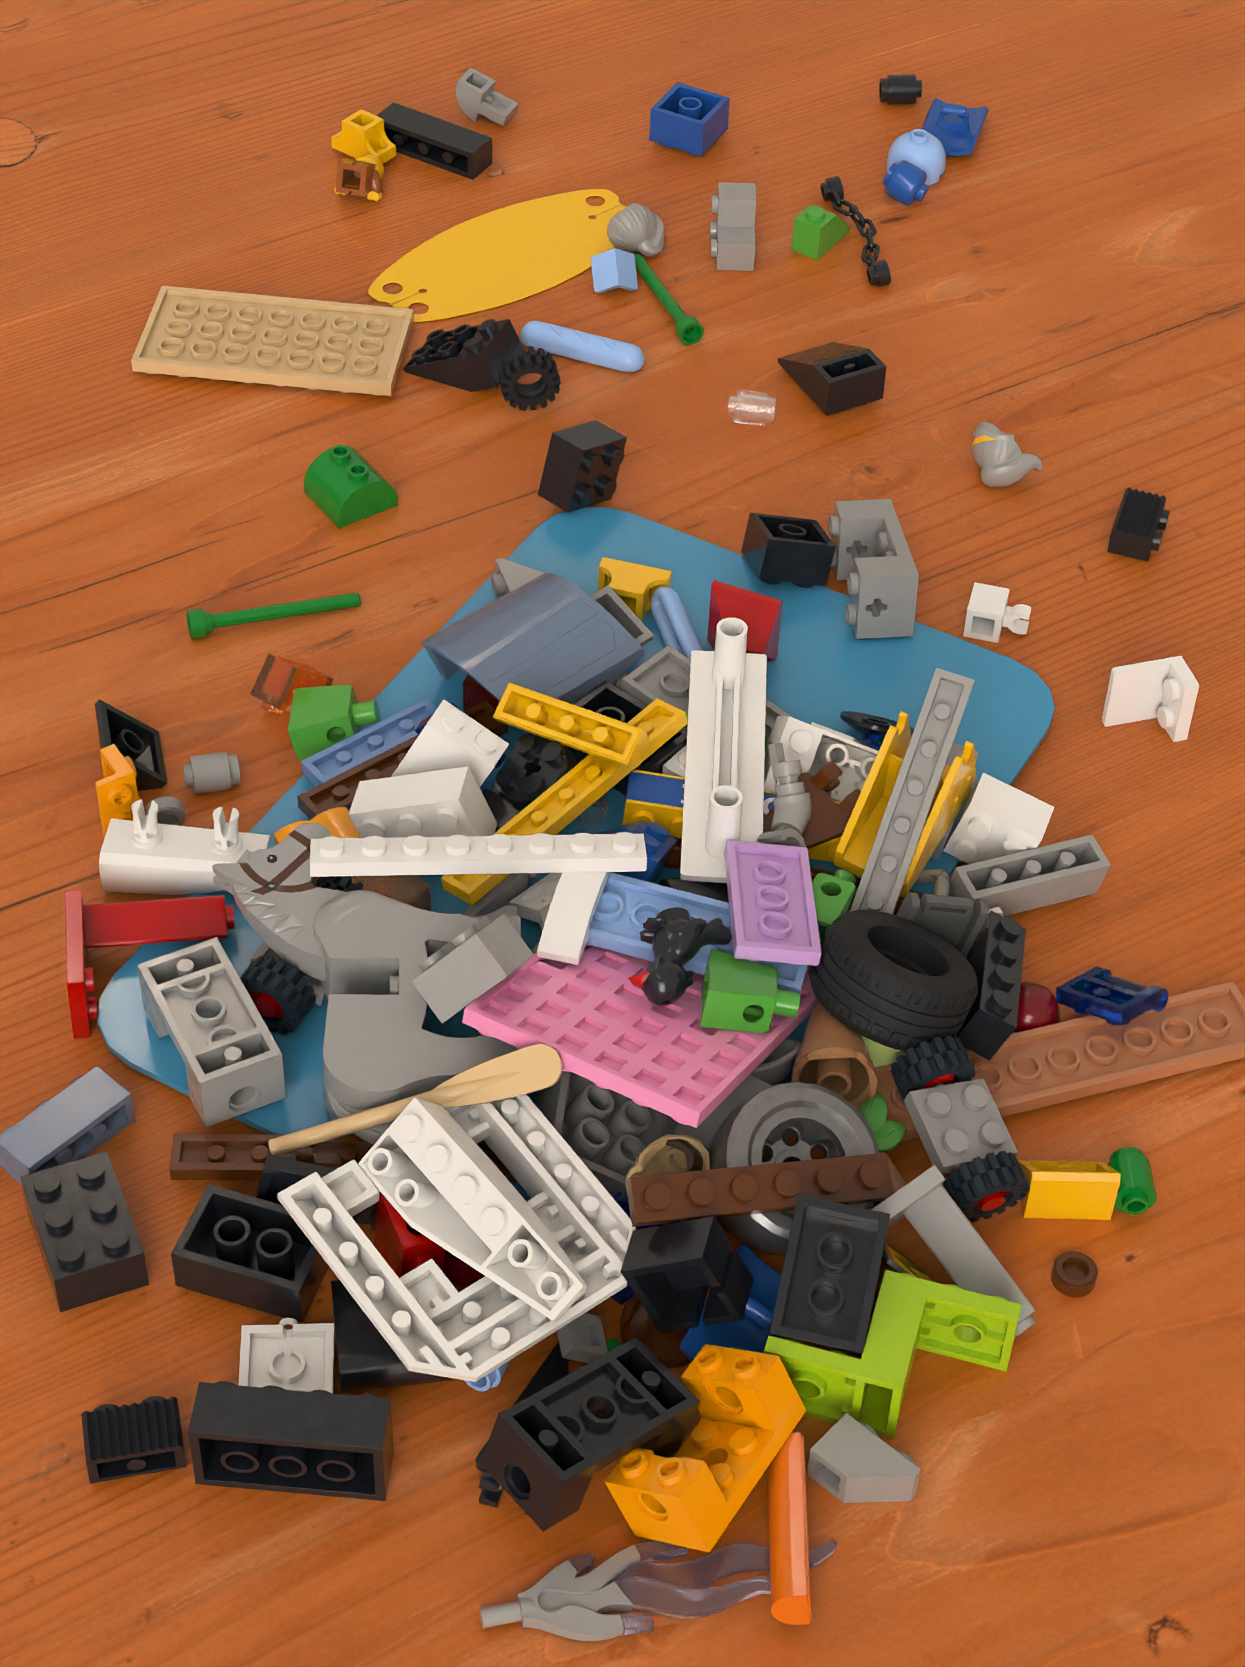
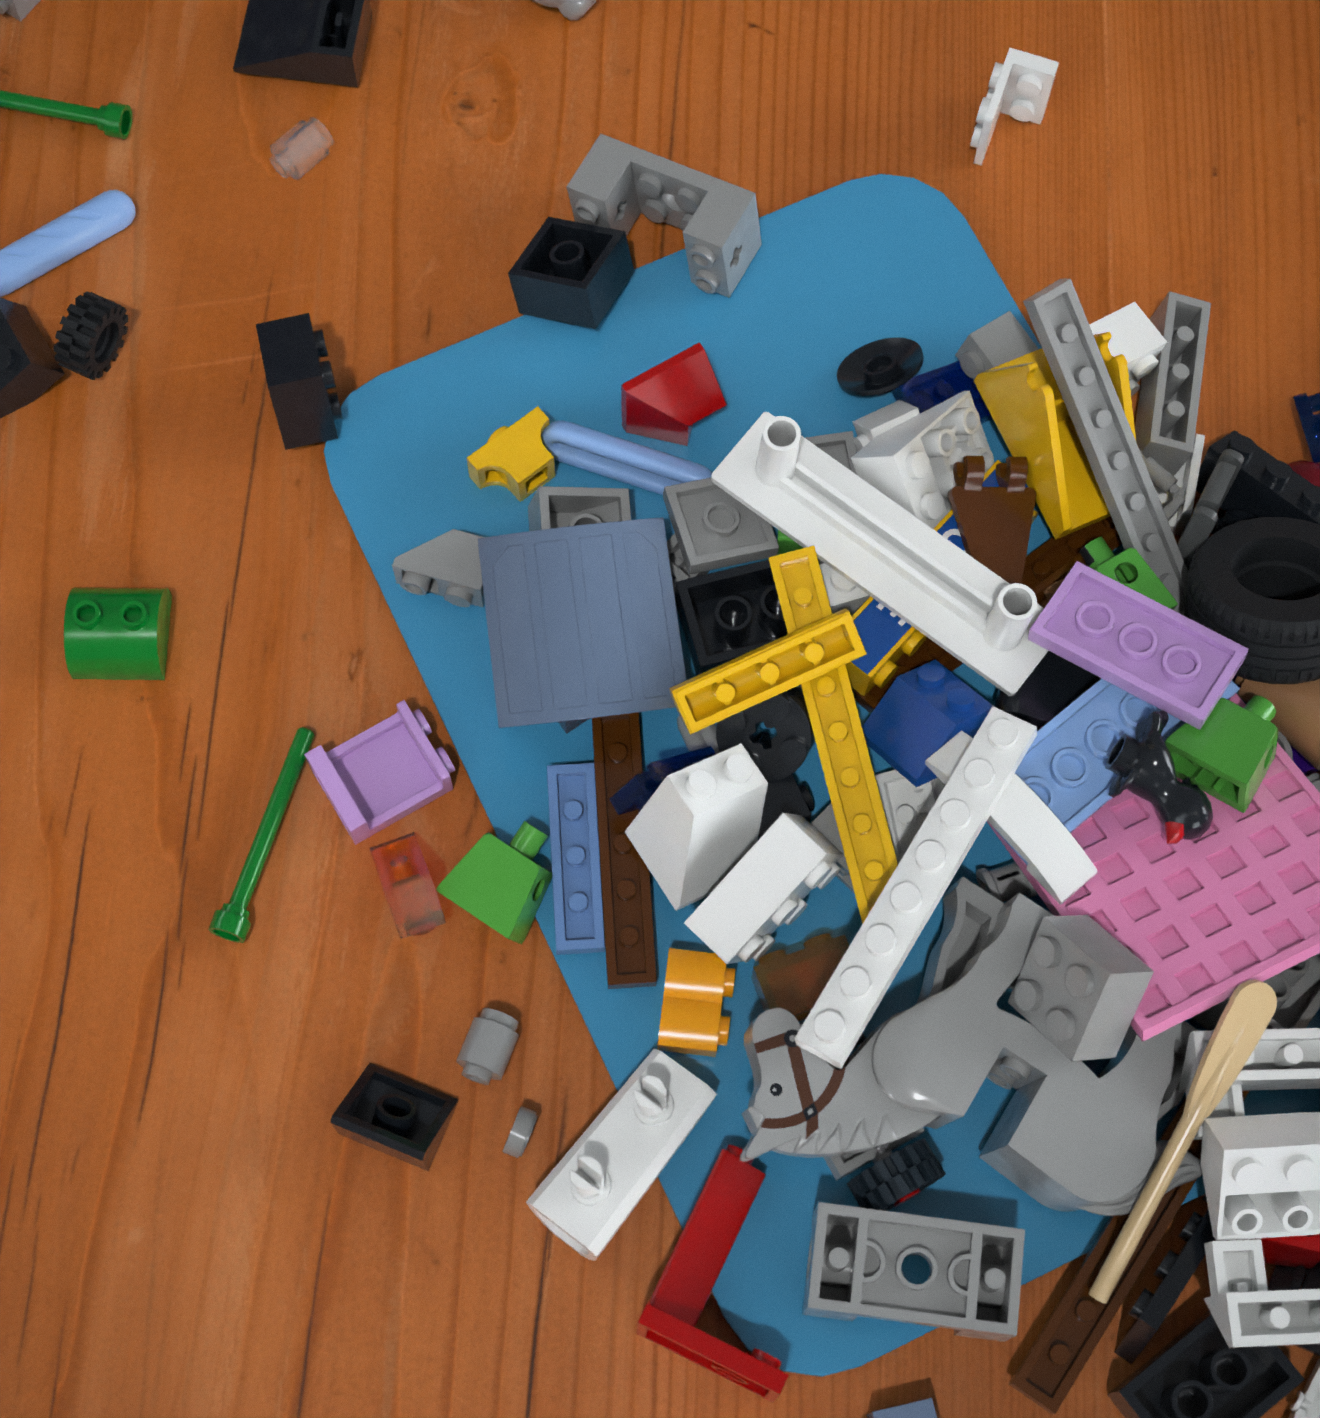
camera: 55 degrees left, 25 degrees up
(117, 788) = (470, 1161): light orange bracket -> none
(355, 641) = (382, 773): none -> lavender panel
(792, 803) = (1004, 542): light grey piece -> none
(989, 613) = (777, 154): white brick -> none

